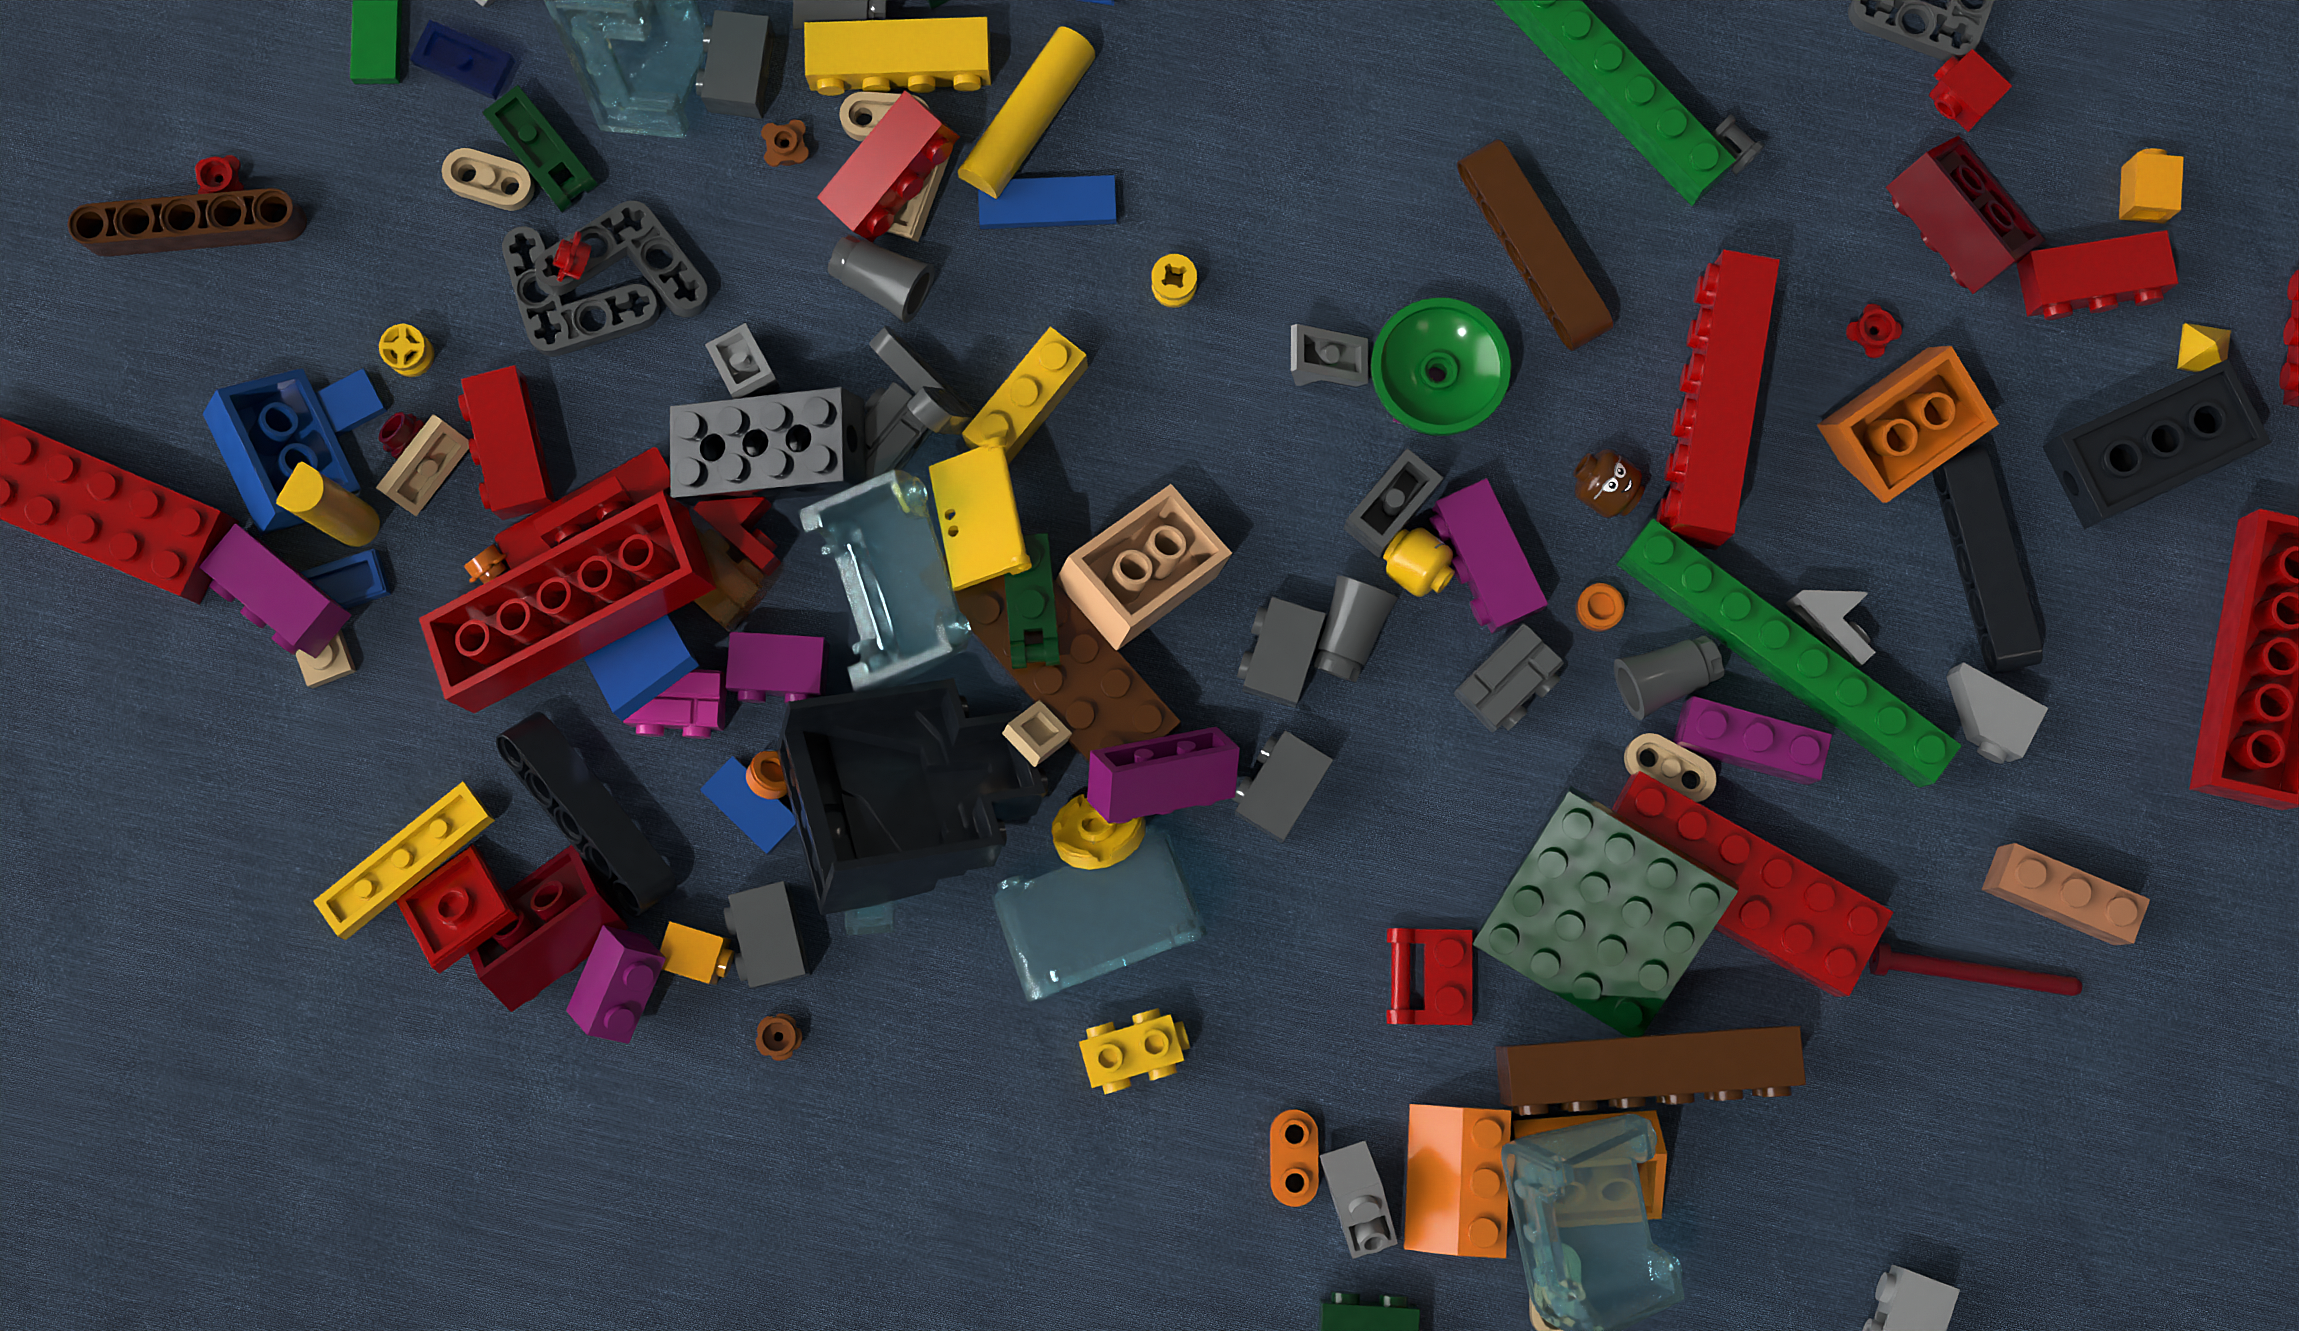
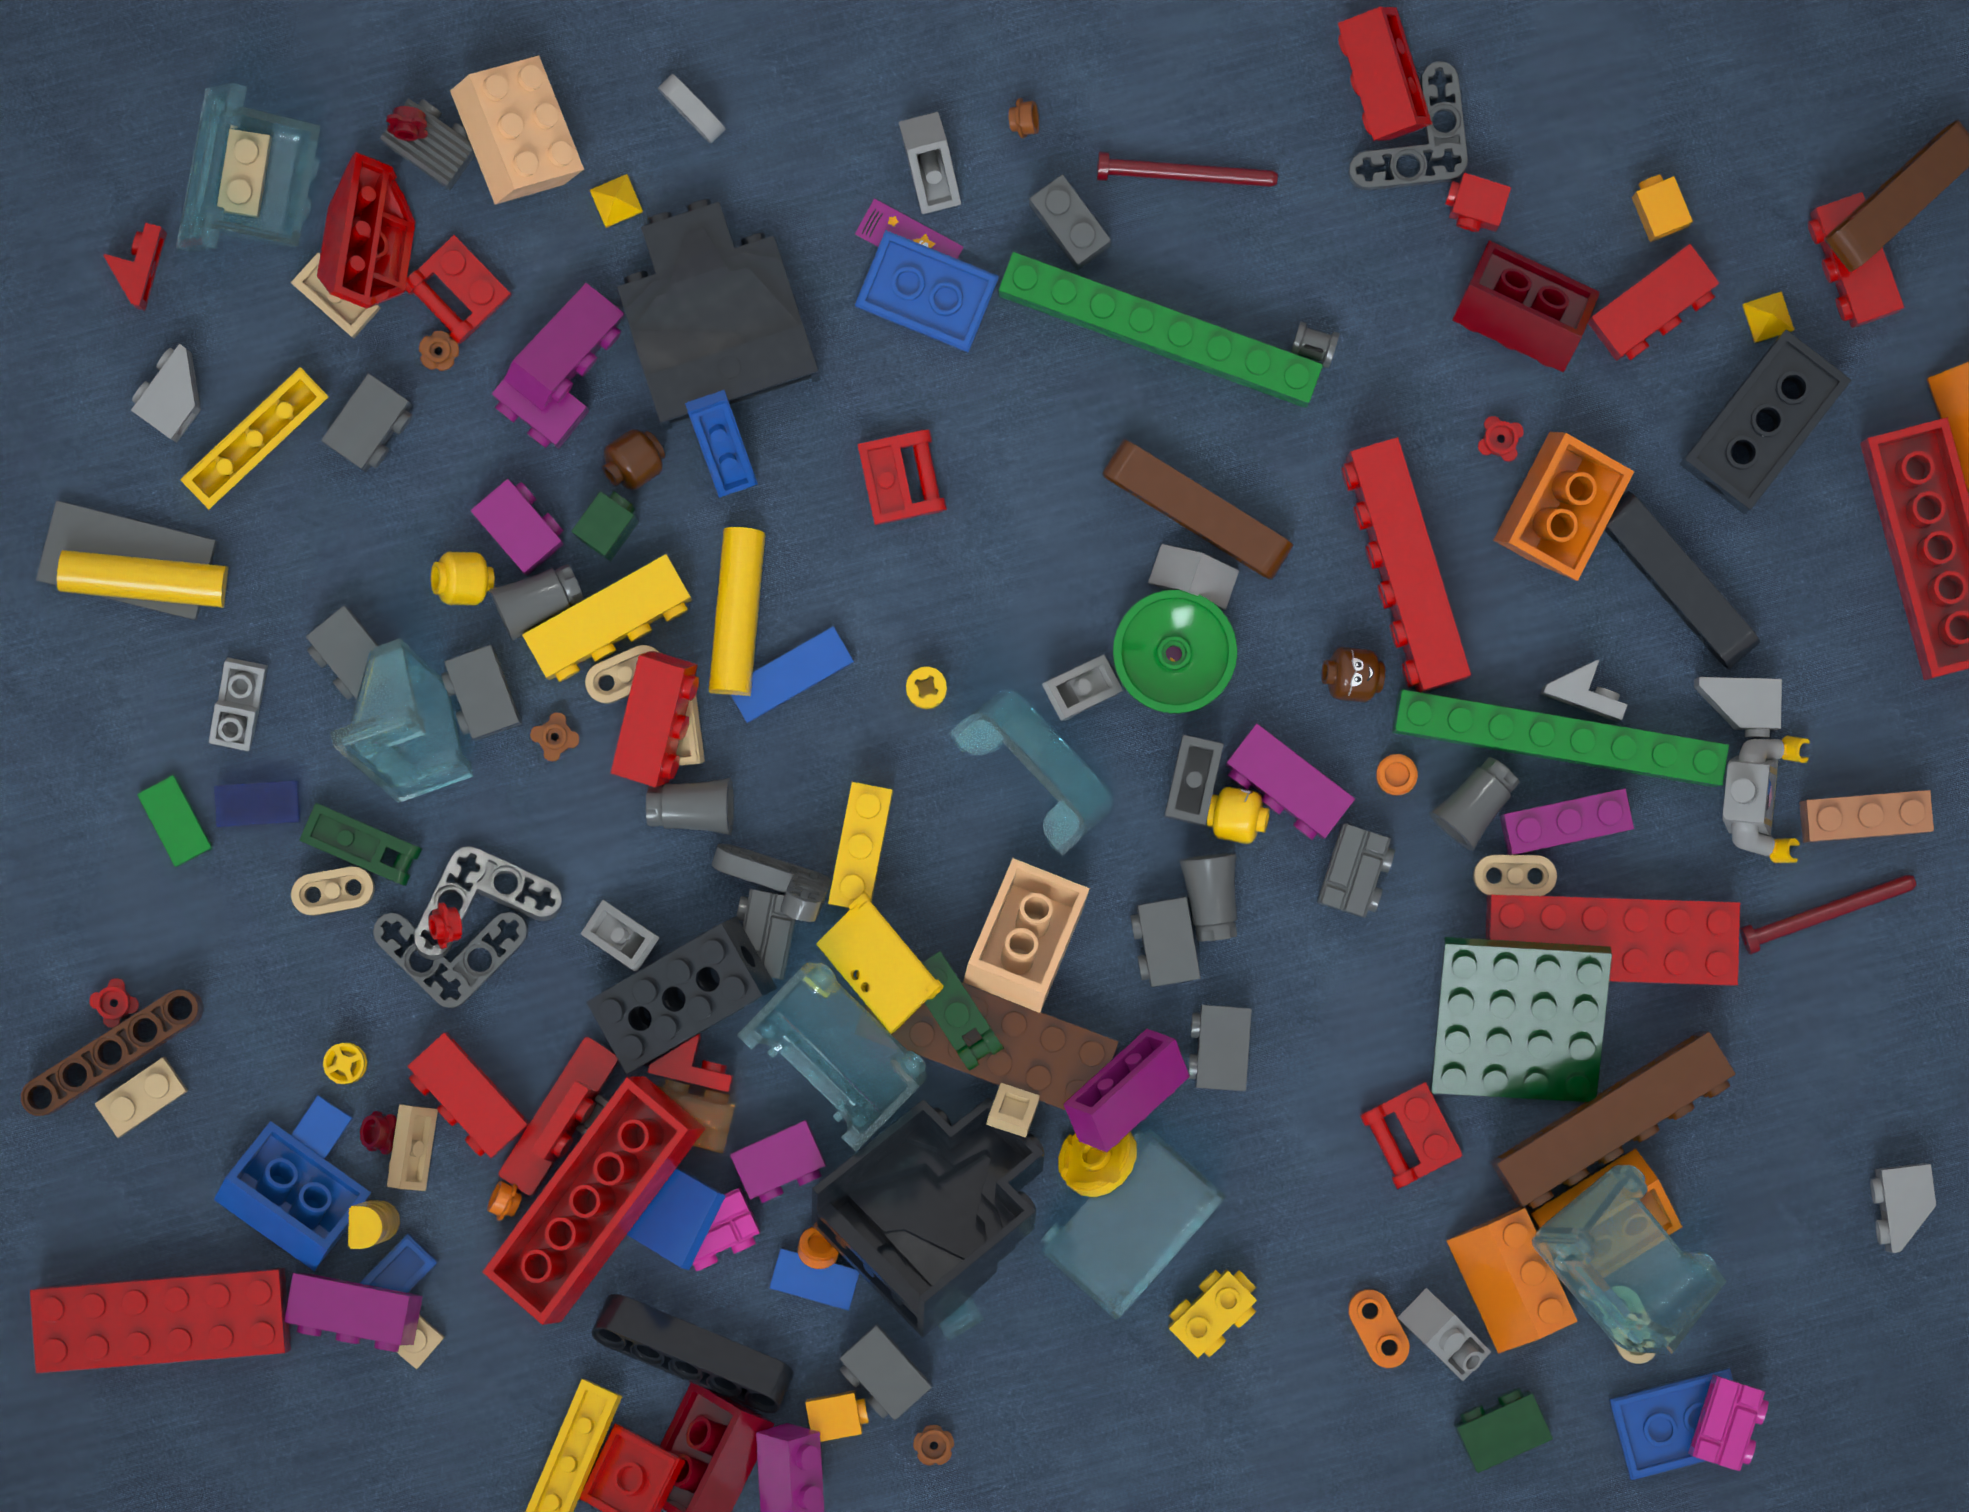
camera: 30 degrees left, 5 degrees up
(193, 282) = (141, 1097): none -> tan plate
(1242, 65) = (888, 481): none -> red plate
(1268, 463) = (1014, 722): none -> clear light blue windscreen
(1502, 302) = (1194, 574): none -> light grey slope
(1957, 811) = (1752, 795): none -> light grey torso

